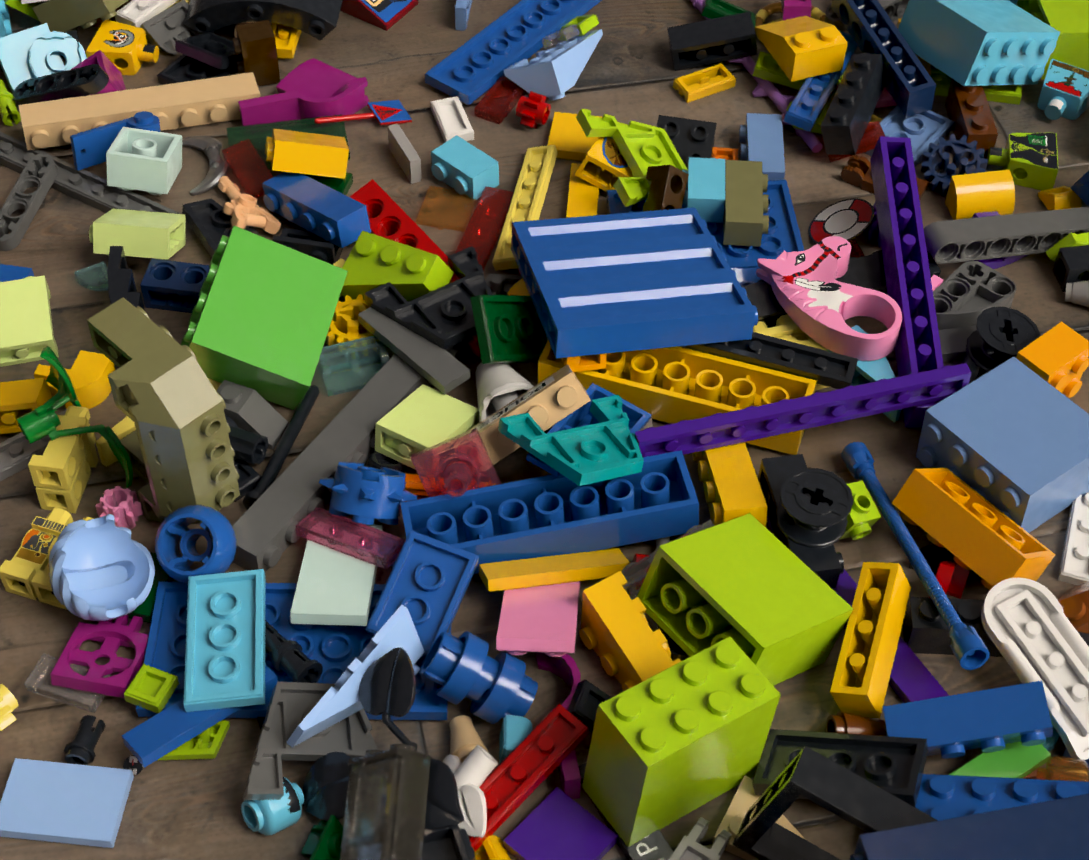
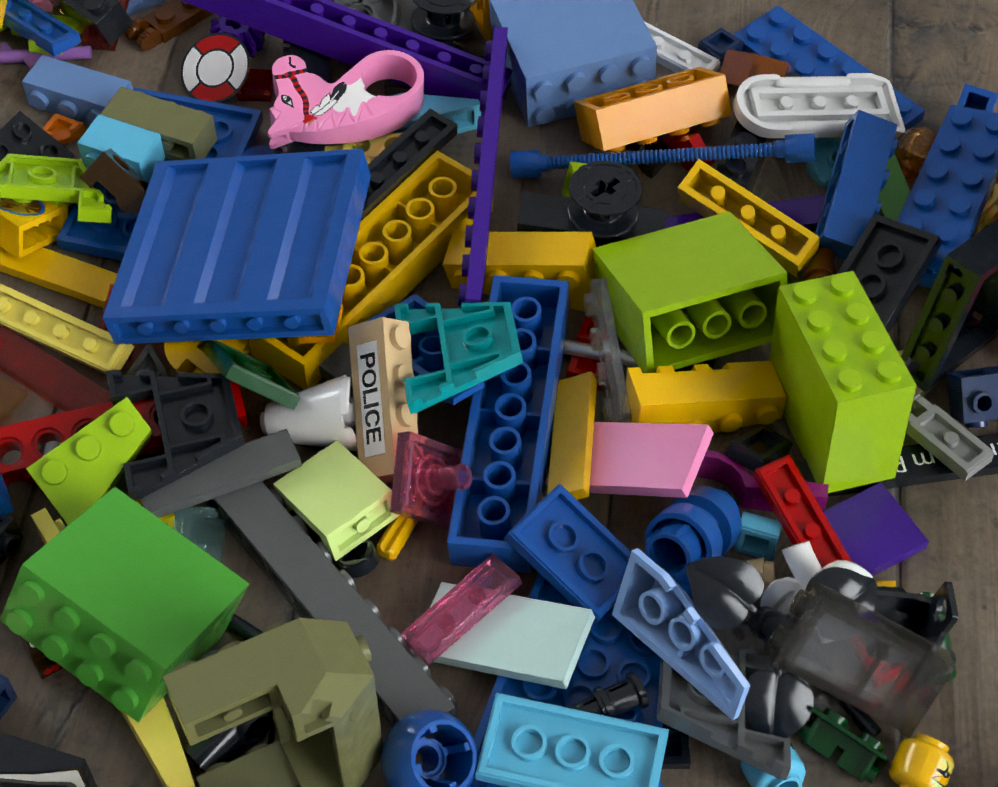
camera: 70 degrees left, 5 degrees up
(367, 493) = (415, 572): blue brick -> none

